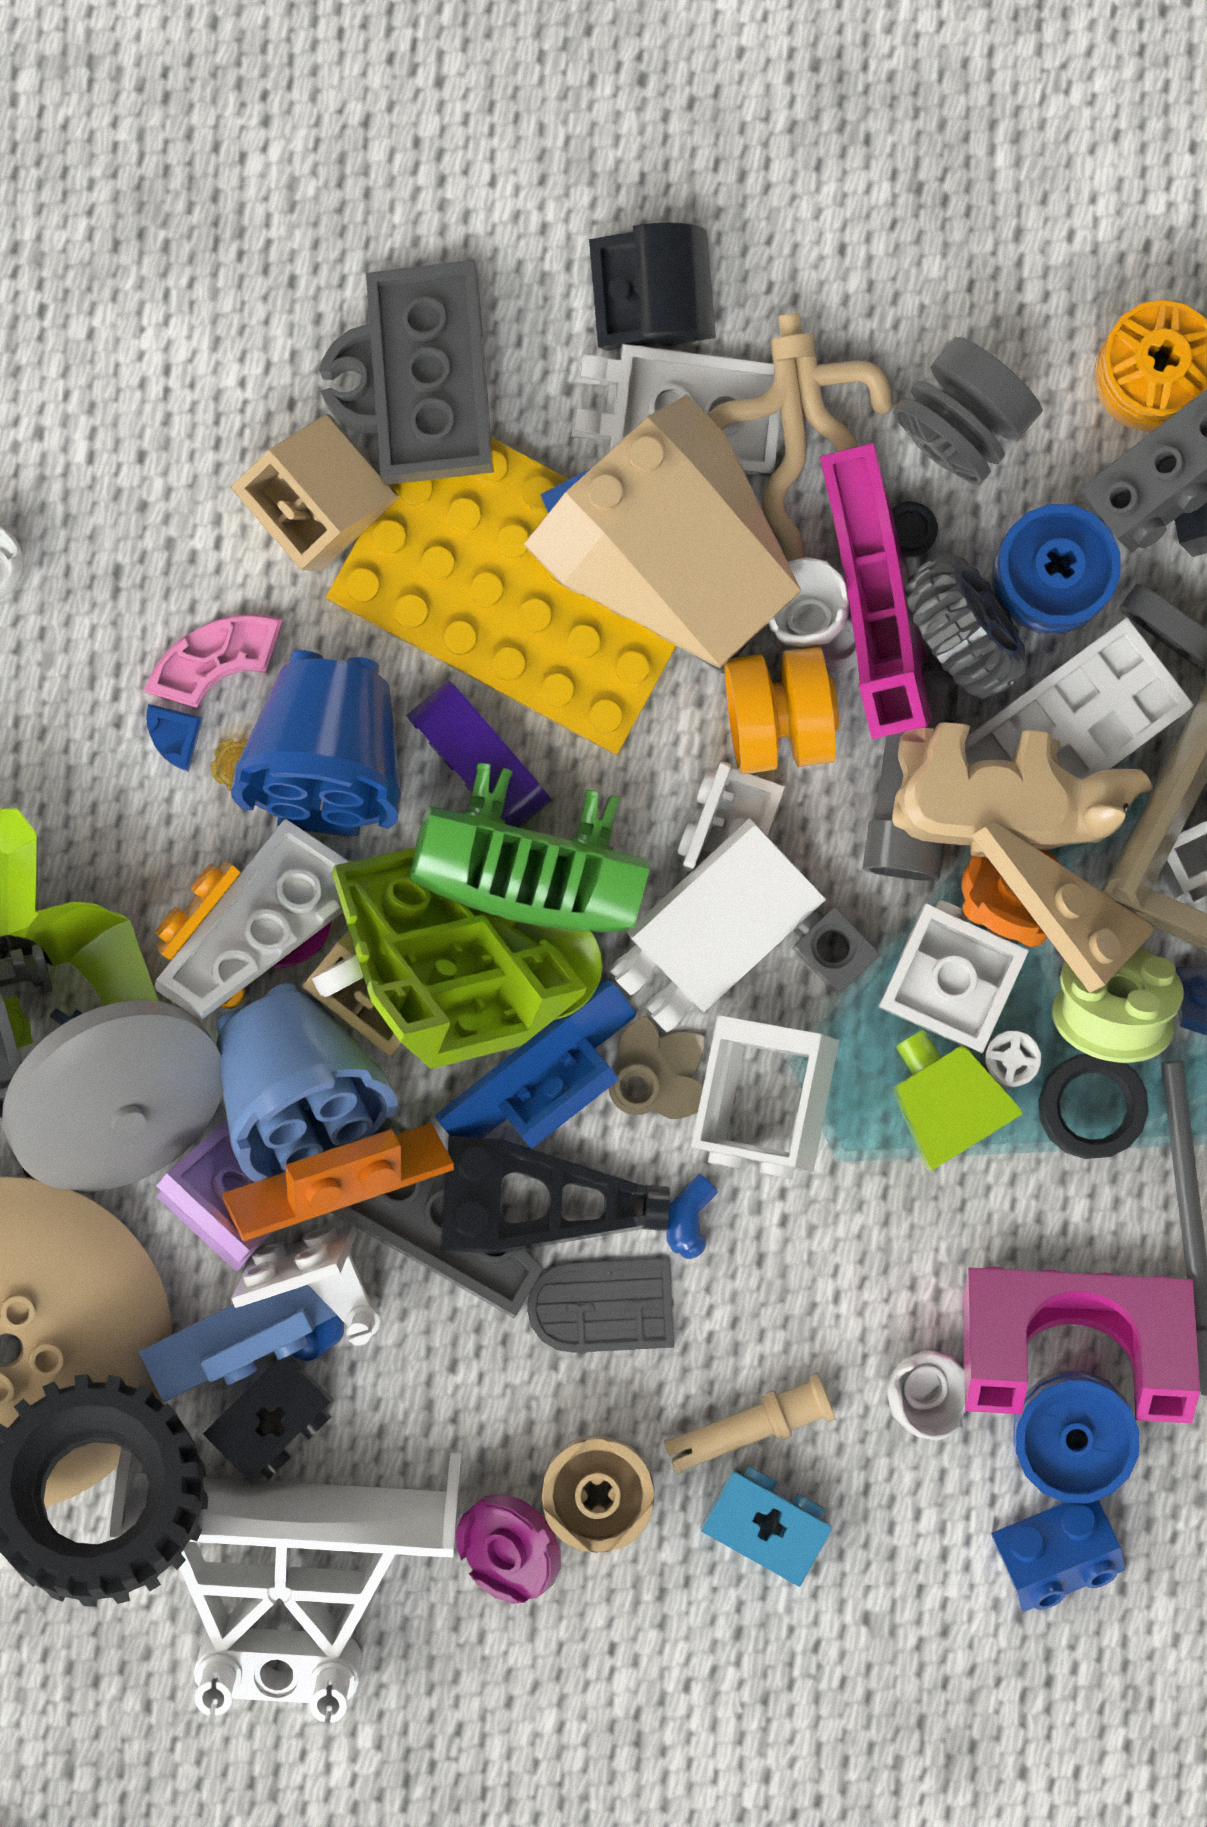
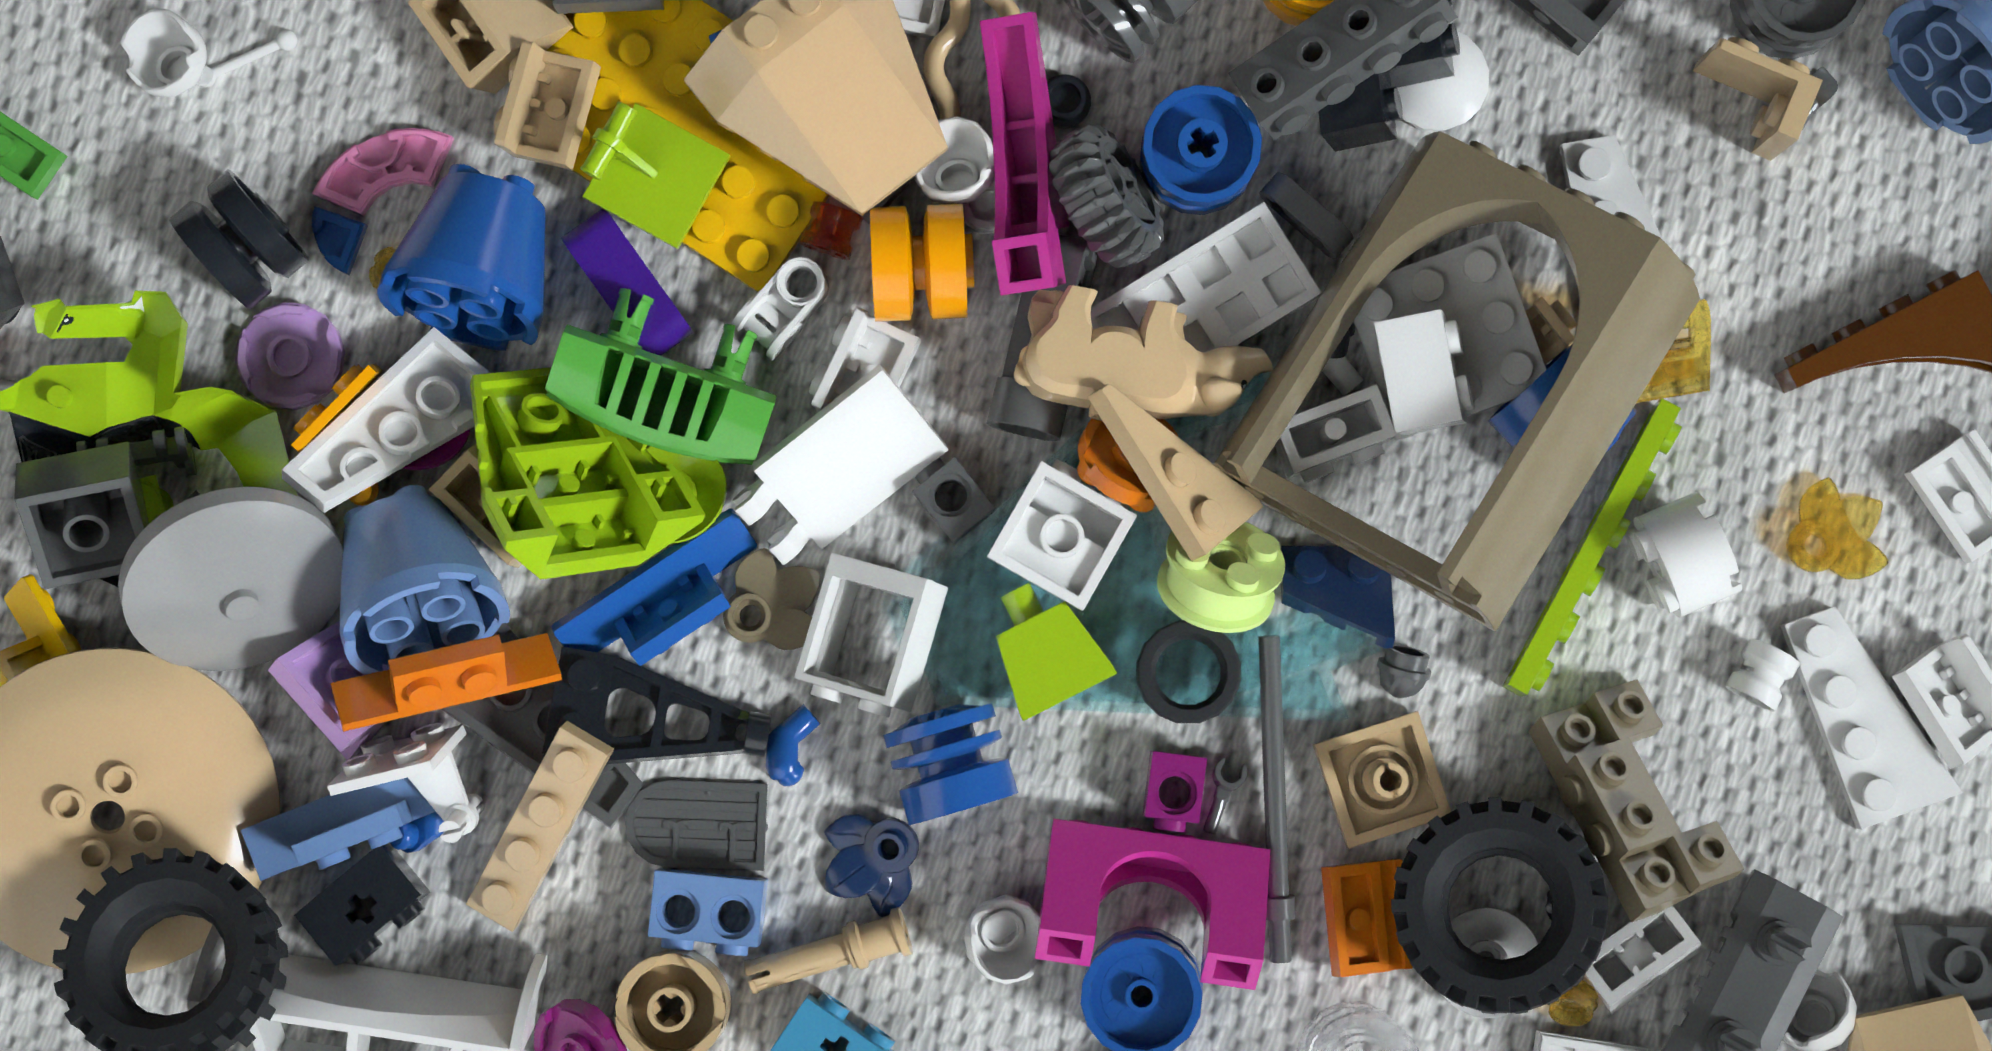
camera: 10 degrees right, 0 degrees up
(80, 745) = (244, 234): none -> black wheel
(100, 534) = (285, 40): none -> white hinge
(149, 874) = (307, 366): none -> lavender tile
(338, 976) = (459, 482): white tile -> none
(383, 582) = (545, 106): none -> tan bracket
(444, 1321) = (539, 826): none -> tan plate
(499, 642) = (651, 172): none -> lime plate
(623, 1377) = (708, 895): none -> medium blue brick
(640, 768) = (781, 308): none -> white piece
(684, 683) = (831, 230): none -> clear red wheel
(778, 1334) = (864, 865): none -> dark blue plate
(859, 1220) = (950, 763): none -> blue wheel
(1021, 1052) = (1123, 613): white wheel -> none
(1106, 1208) = (1192, 771): none -> magenta brick
(1136, 1228) = (1221, 795): none -> dark grey hand

